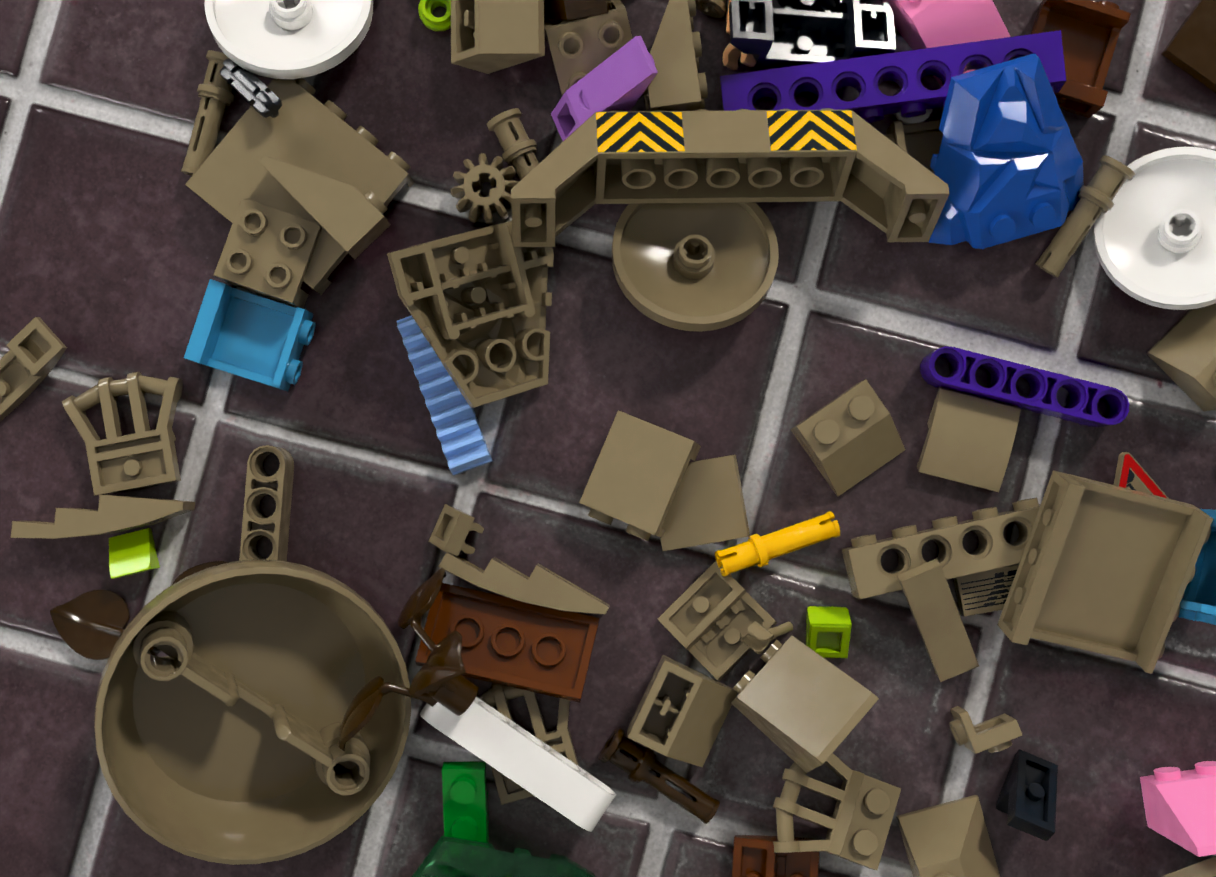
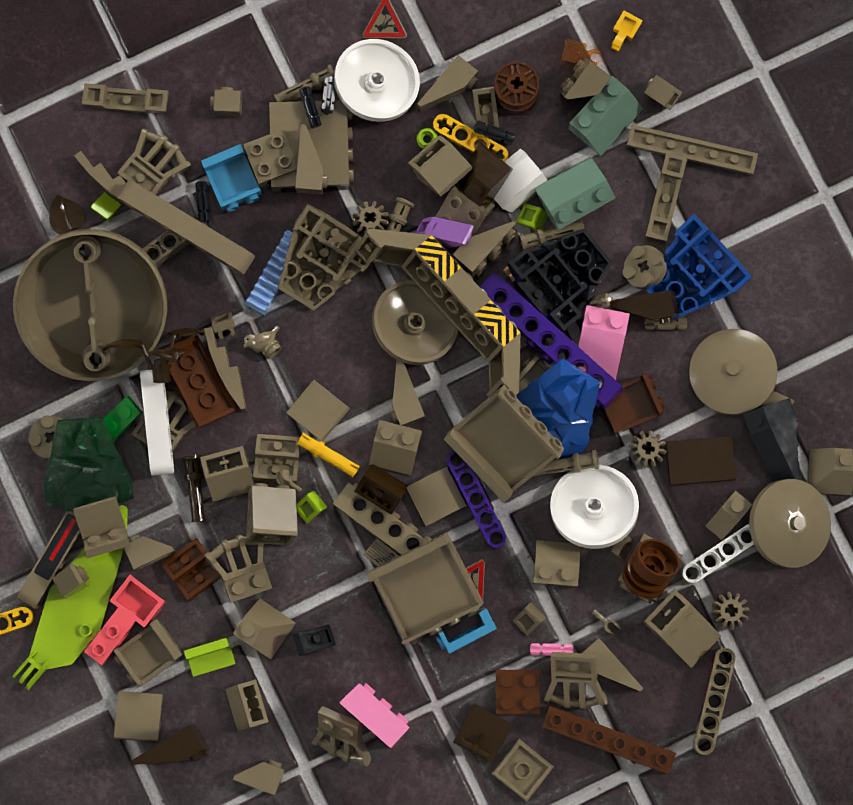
camera: 55 degrees right, 5 degrees down
(132, 247) = (227, 102): none -> dark tan brick
(244, 130) = (310, 107): none -> black axle
(248, 408) = (202, 202): none -> black axle
(263, 465) = (186, 227): none -> dark tan beam
(533, 496) = (264, 343): none -> dark tan animal
(638, 475) = (307, 375): dark tan panel -> none
(791, 364) = (405, 401): none -> dark tan slope
(899, 509) = (381, 489): none -> dark brown bracket
(938, 620) = (351, 543): dark tan tile -> none
(989, 272) = (503, 442): none -> dark tan panel
(991, 734) = (324, 605): dark tan bracket -> none
(1168, 74) = (653, 445): none -> dark tan gear

